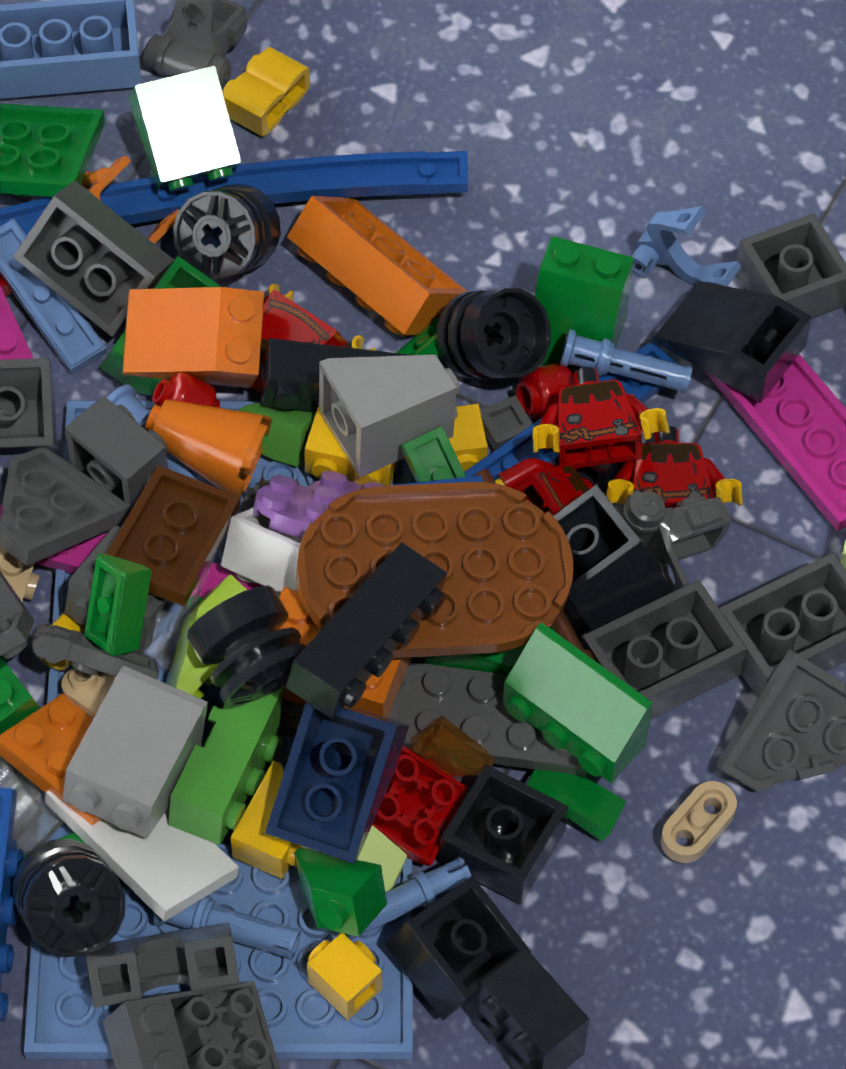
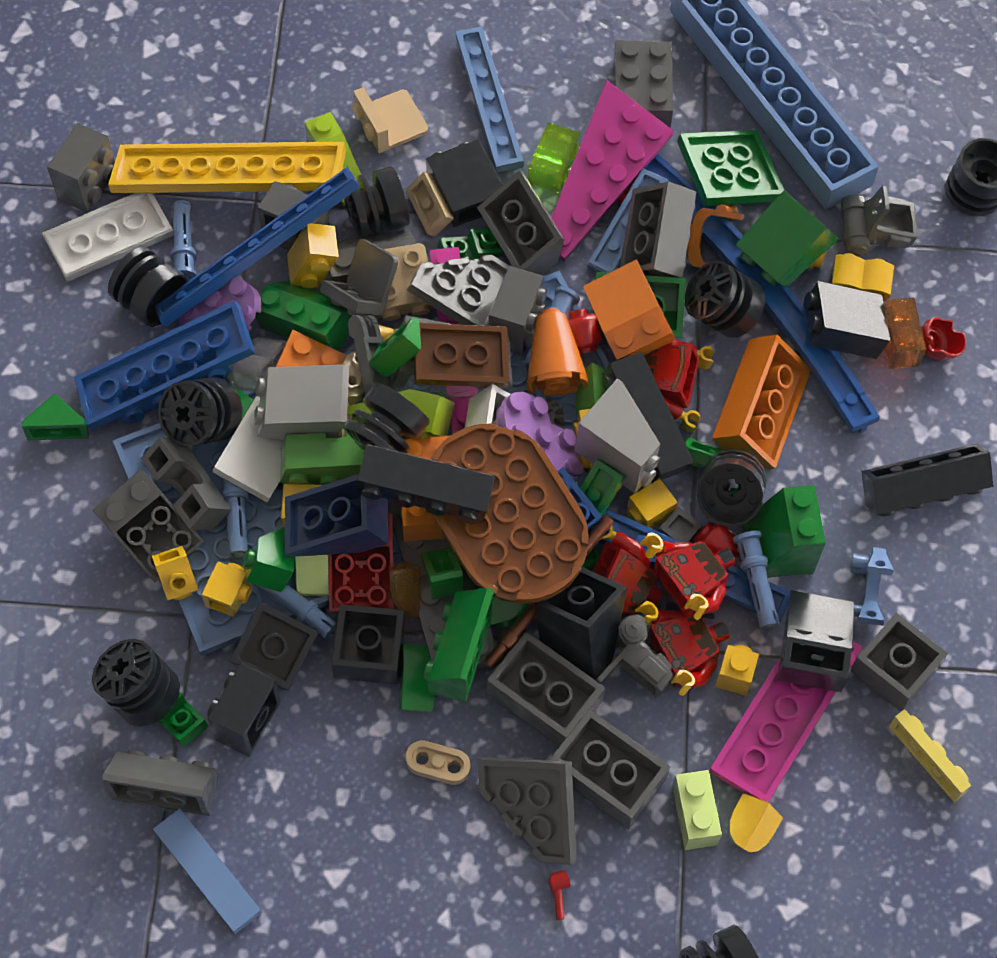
camera: 65 degrees right, 5 degrees up
(293, 1028) = (175, 573): none -> yellow brick
(321, 123) = (846, 320): none -> brick
(363, 82) = (905, 333): none -> clear orange brick
(396, 50) = (942, 340): none -> red hair
(456, 692) = (442, 572): none -> green slope
(573, 142) = (927, 479): none -> black brick
(727, 438) = (737, 669): none -> yellow brick

